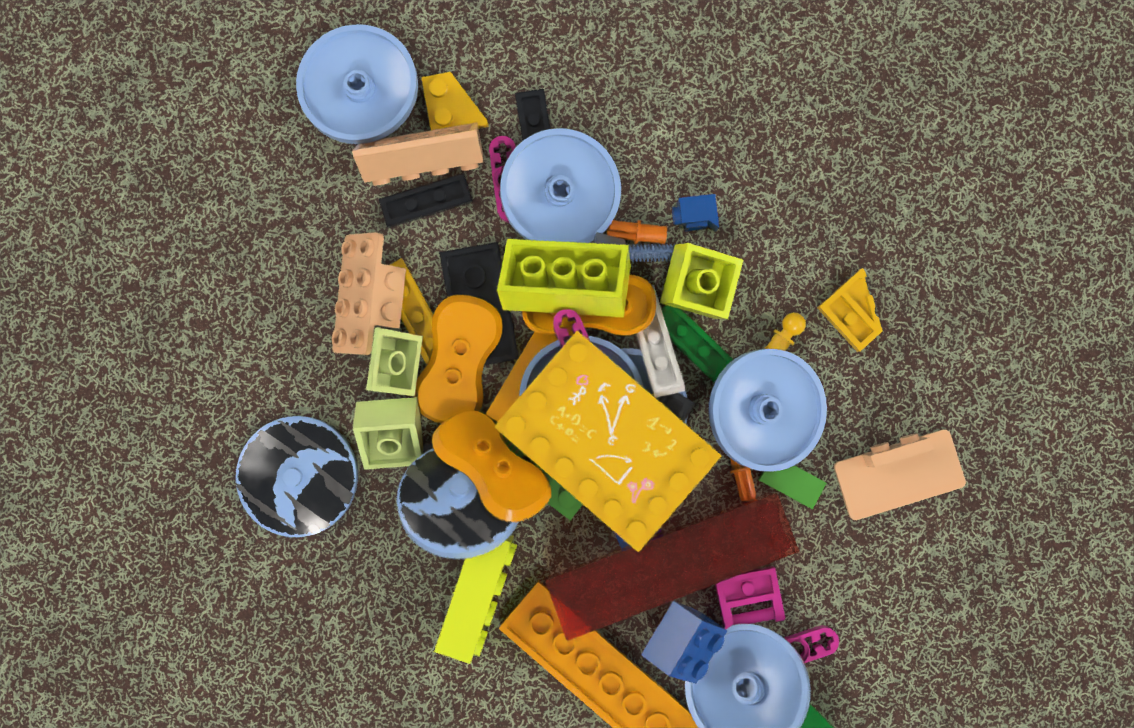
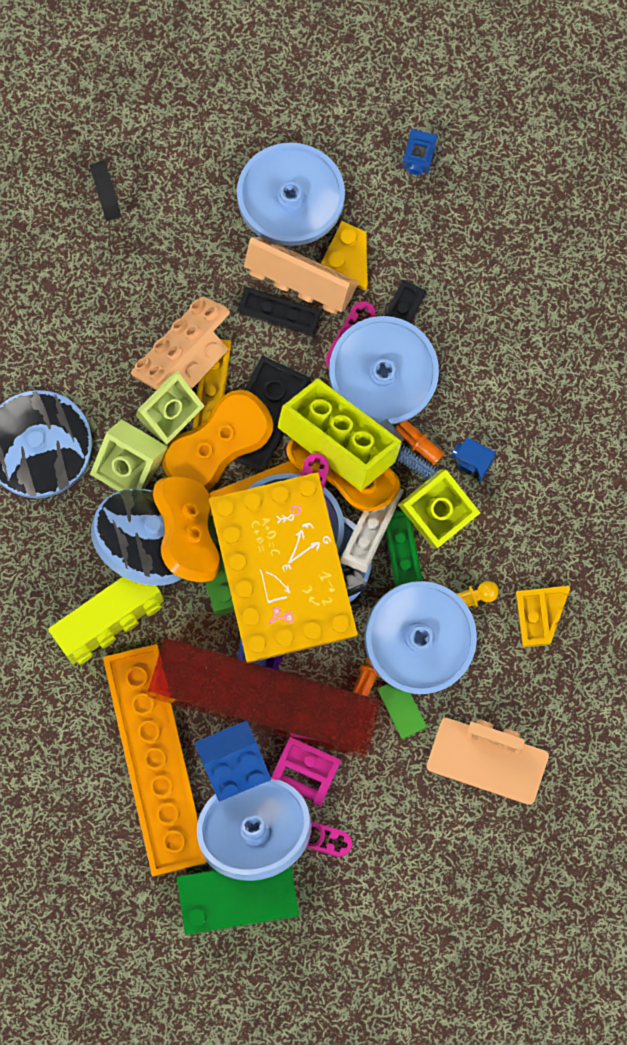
camera: 35 degrees right, 10 degrees down
(183, 200) = (105, 190): none -> black tyre

